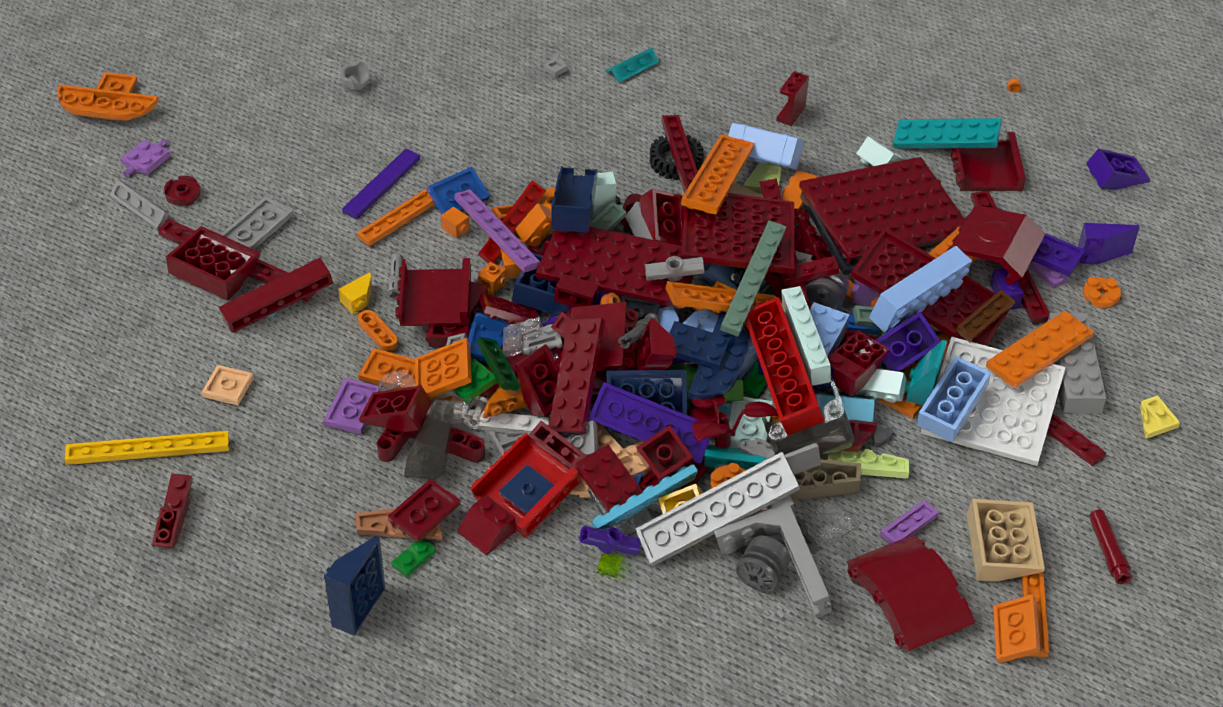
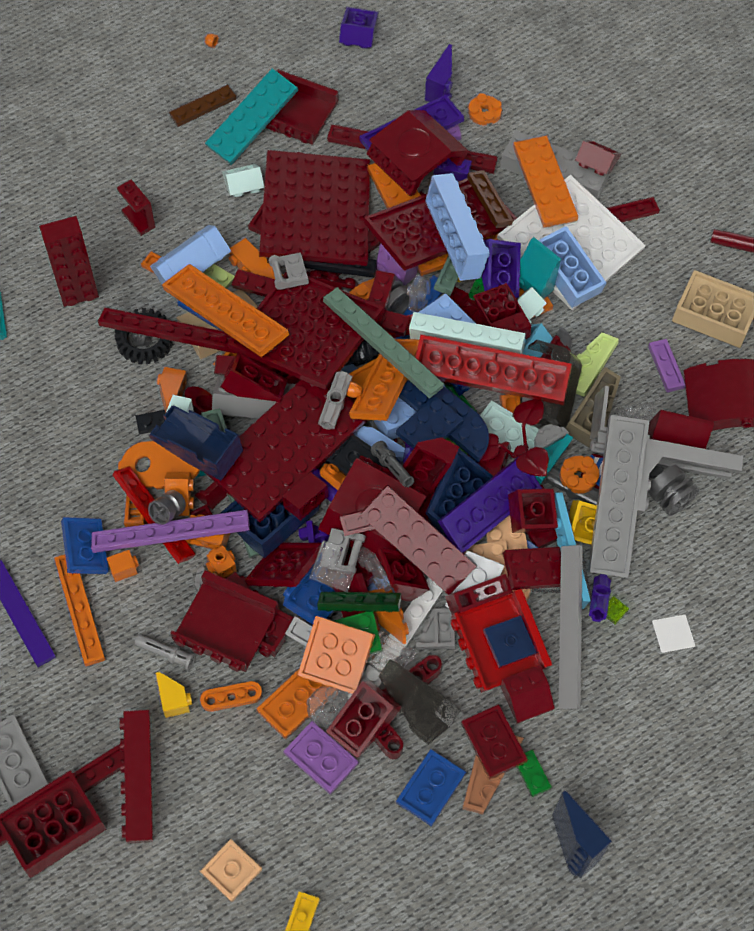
camera: 65 degrees left, 15 degrees up
(362, 488) = (430, 787): none -> blue plate
(514, 216) = (166, 507): none -> flat silver wheel
(565, 525) = (570, 627): none -> light grey tile
(616, 623) = (673, 633): none -> white sticker
(634, 184) = (171, 383): none -> orange slope
(692, 276) = (354, 390): none -> orange hinge
(694, 67) = (69, 261): none -> dark red brick
(790, 205) = (294, 267): none -> light grey plate
(827, 545) = (680, 429): none -> dark red slope
(841, 293) = (417, 293): none -> clear plate
(938, 105) = (202, 105): none -> reddish brown plate
(1101, 376) = (597, 157): none -> slope
(1157, 417) = (634, 146): light yellow wing -> none

